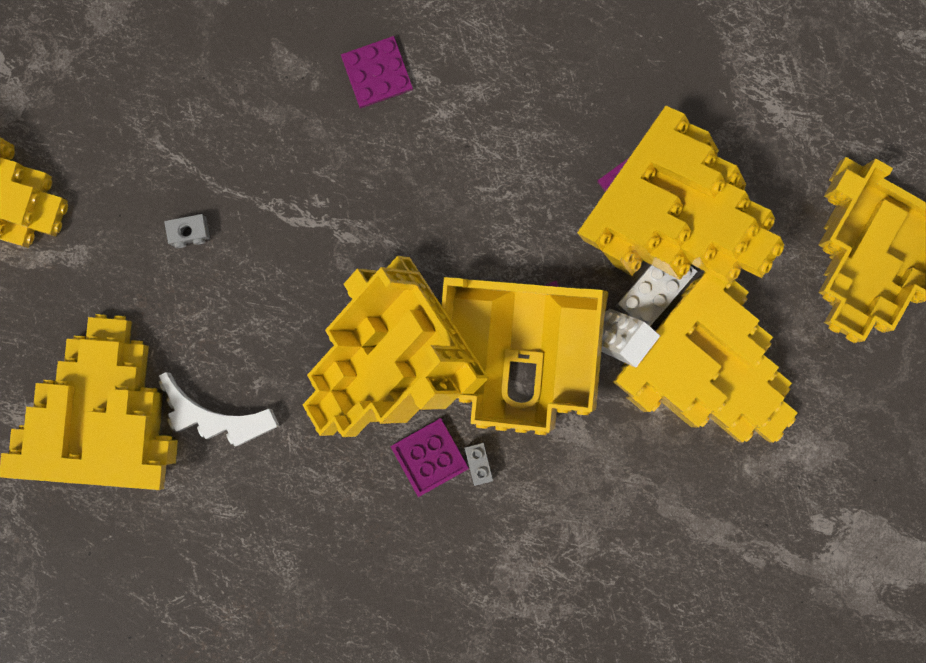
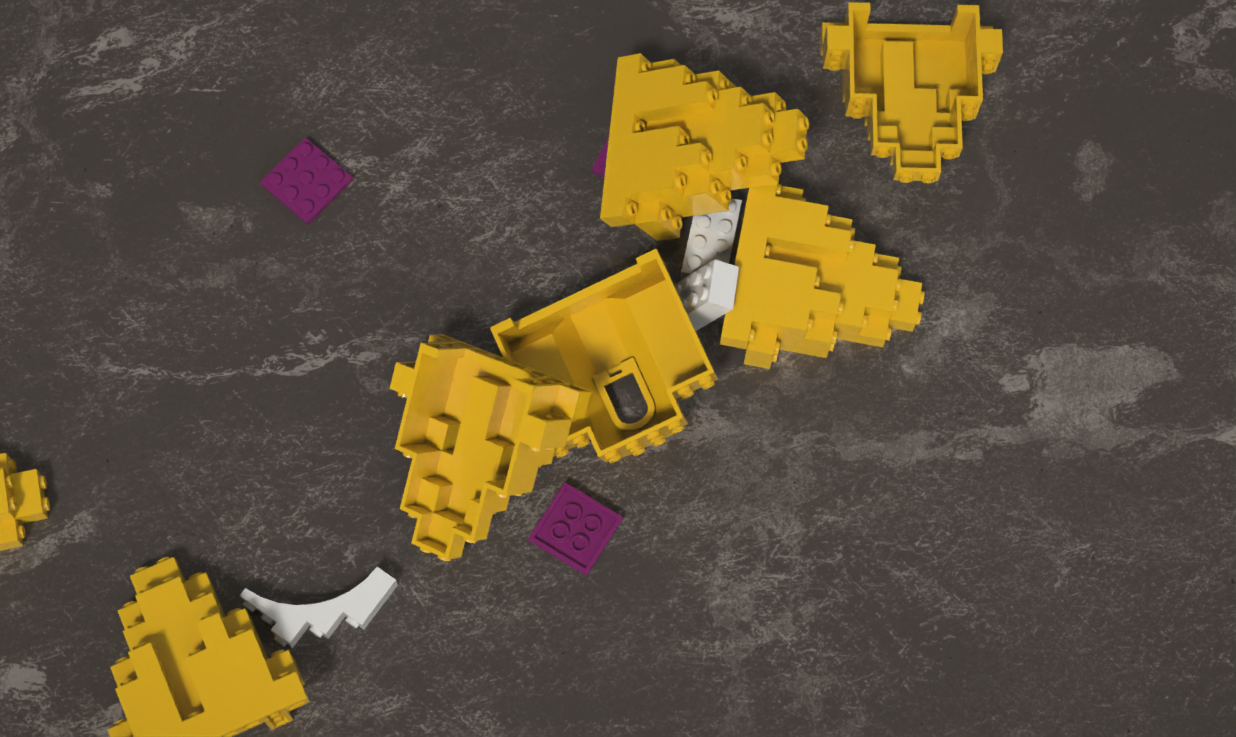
camera: 30 degrees left, 15 degrees down
(176, 227) = (193, 423): light grey brick -> none
(478, 464) = (630, 506): light grey brick -> none

